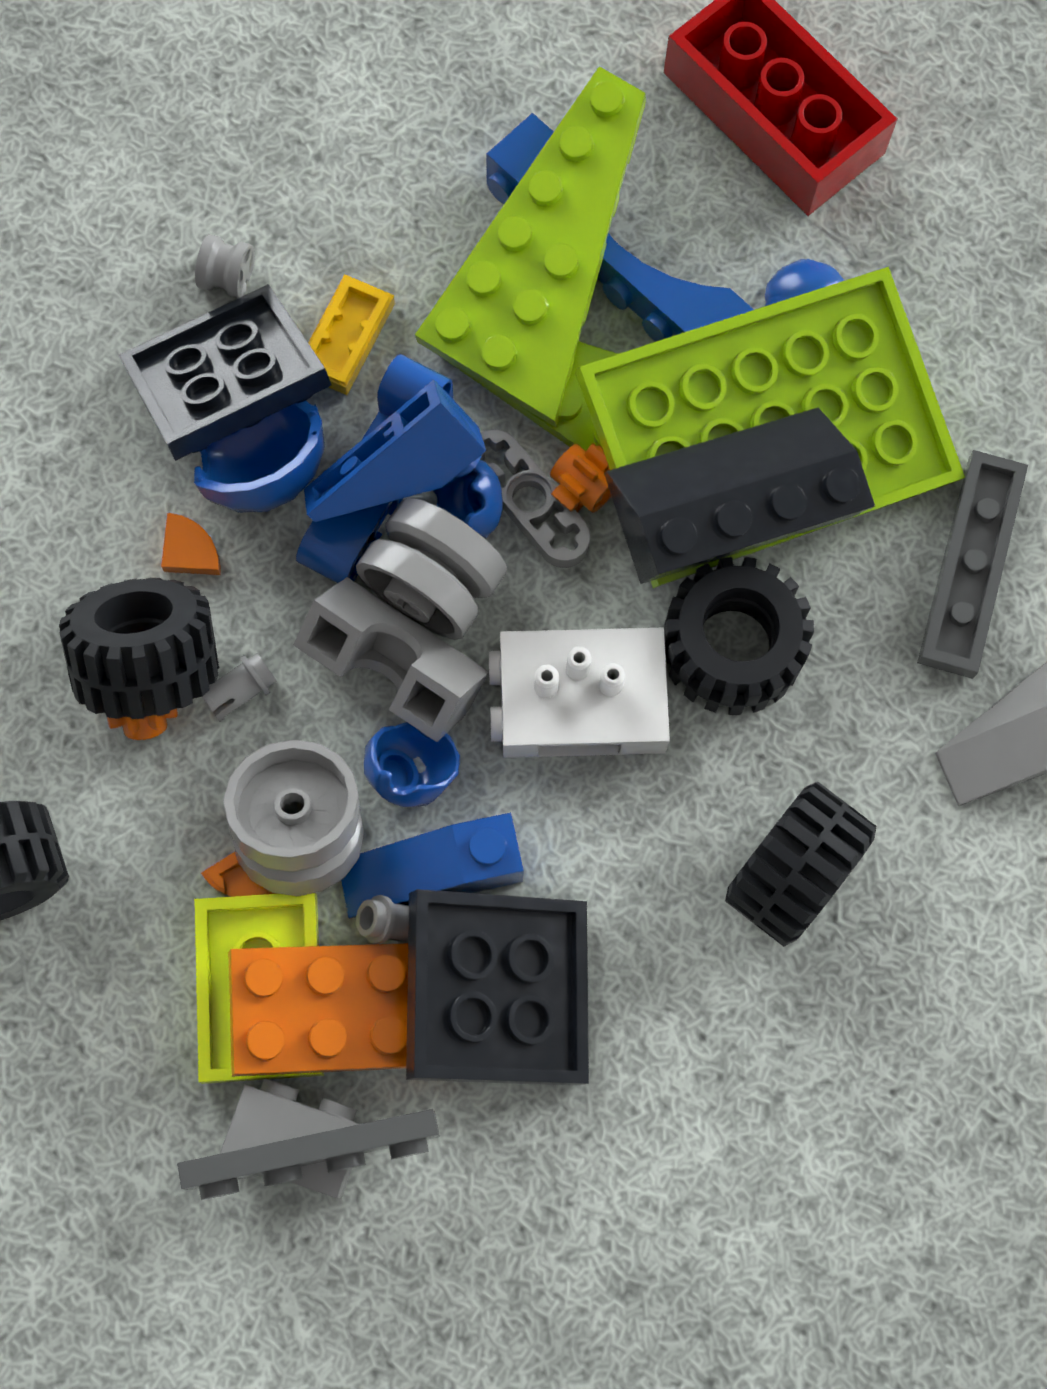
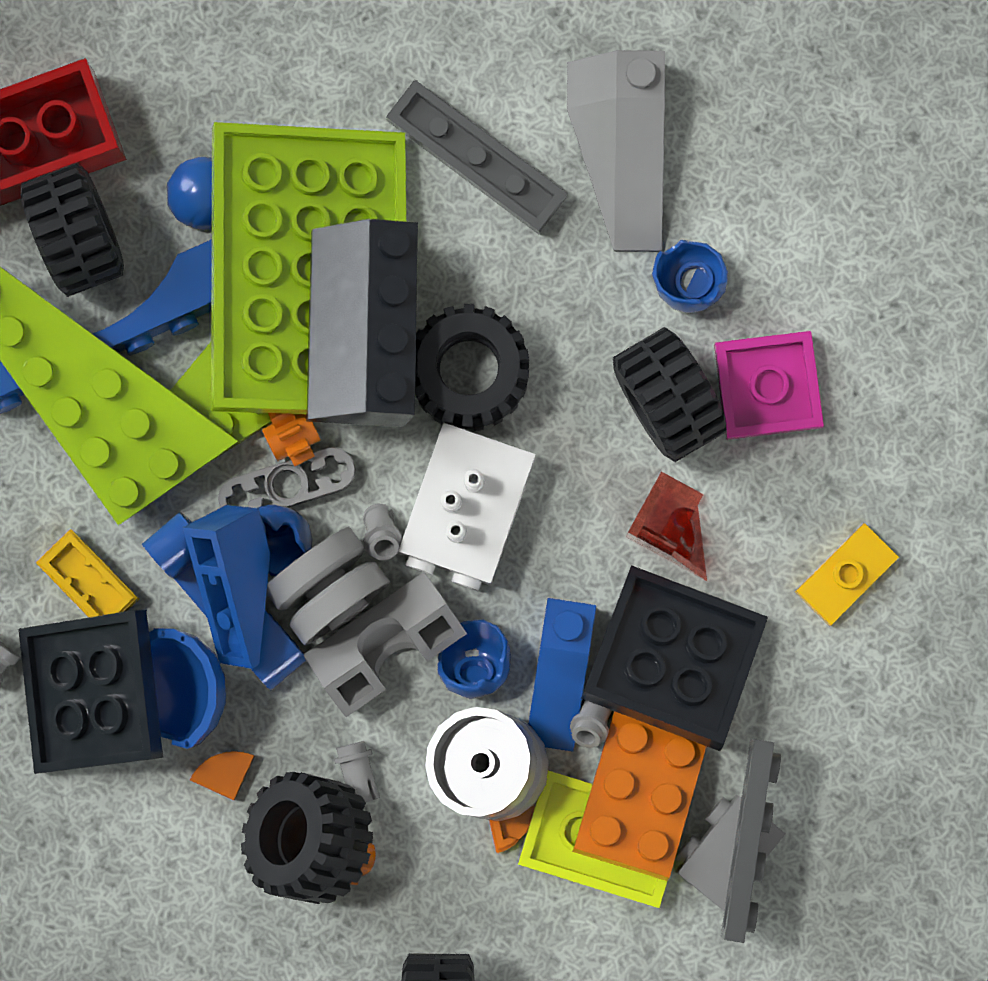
camera: 60 degrees left, 10 degrees up
(511, 610) = (382, 536): none -> light grey pin
(651, 930) = (671, 525): none -> clear red slope
(676, 1161) = (846, 574): none -> yellow plate
(710, 171) = (72, 229): none -> black tyre
(859, 983) = (768, 385): none -> dark pink plate
(945, 820) = (706, 284): none -> blue hair

